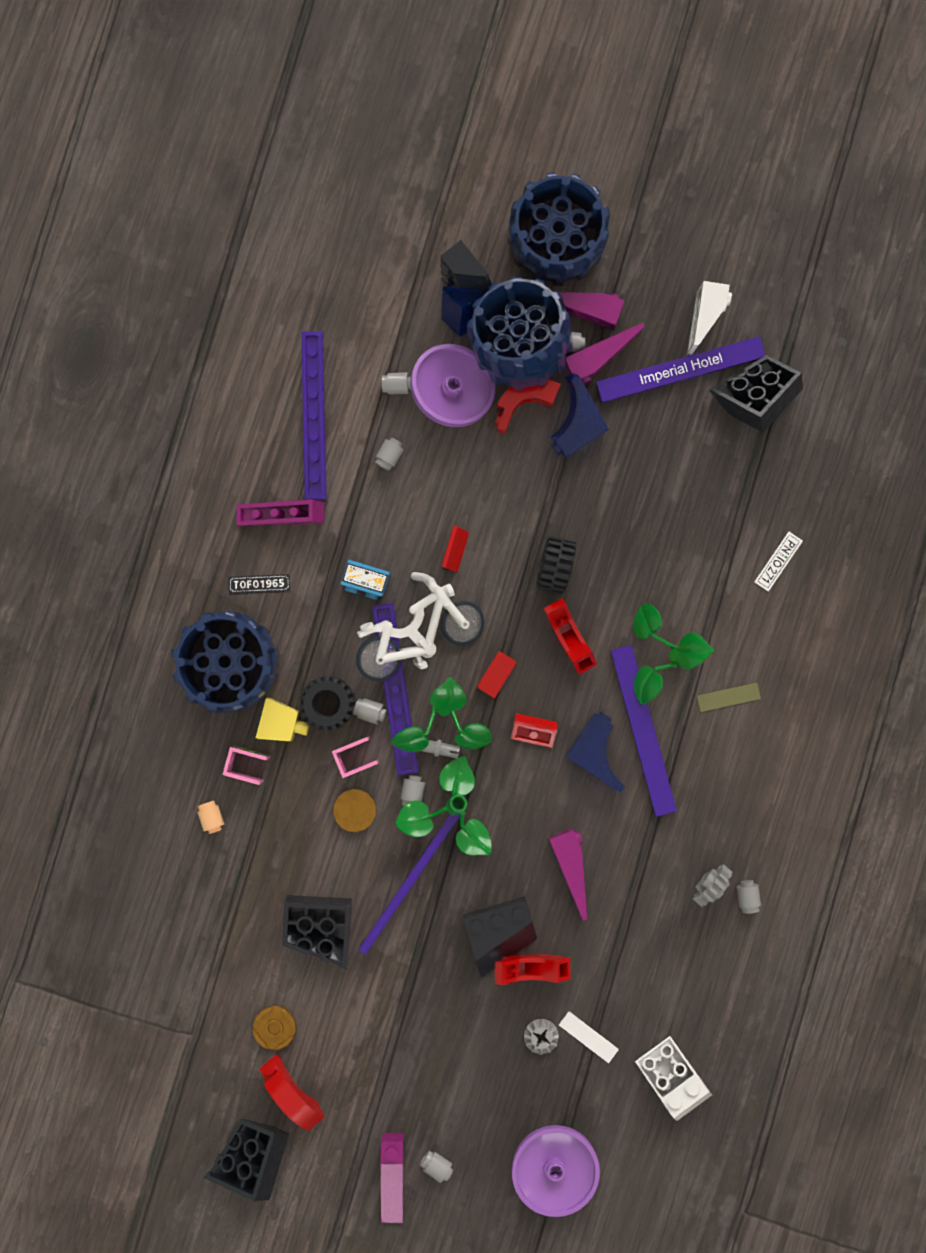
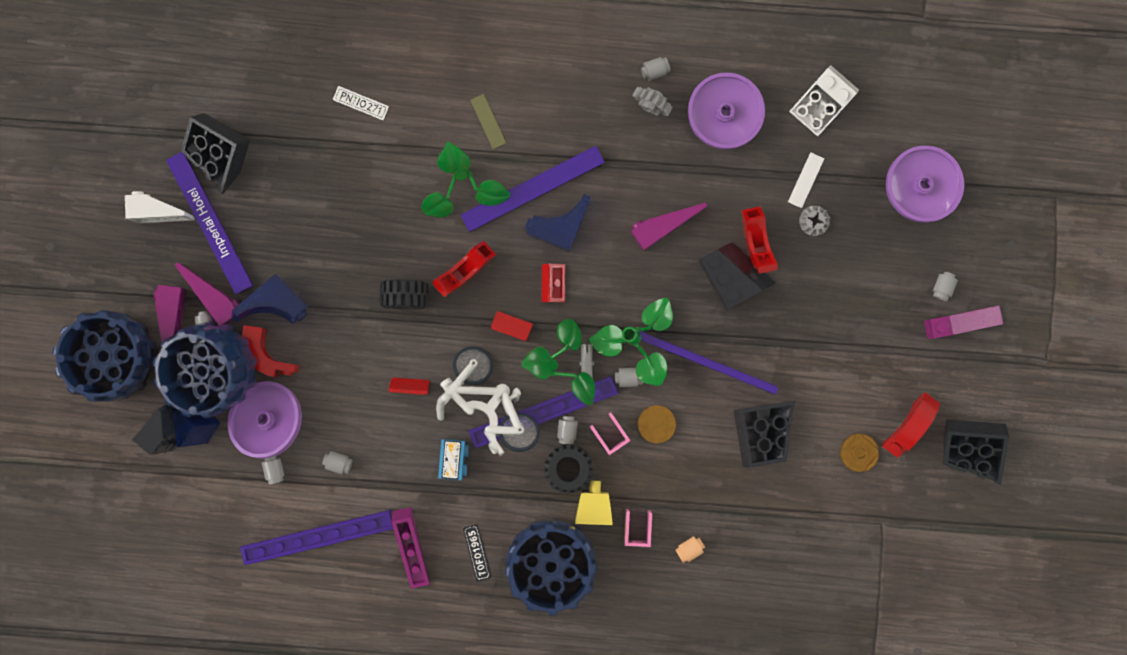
camera: 105 degrees left, 0 degrees up
(684, 965) = (726, 111): none -> medium lavender dish

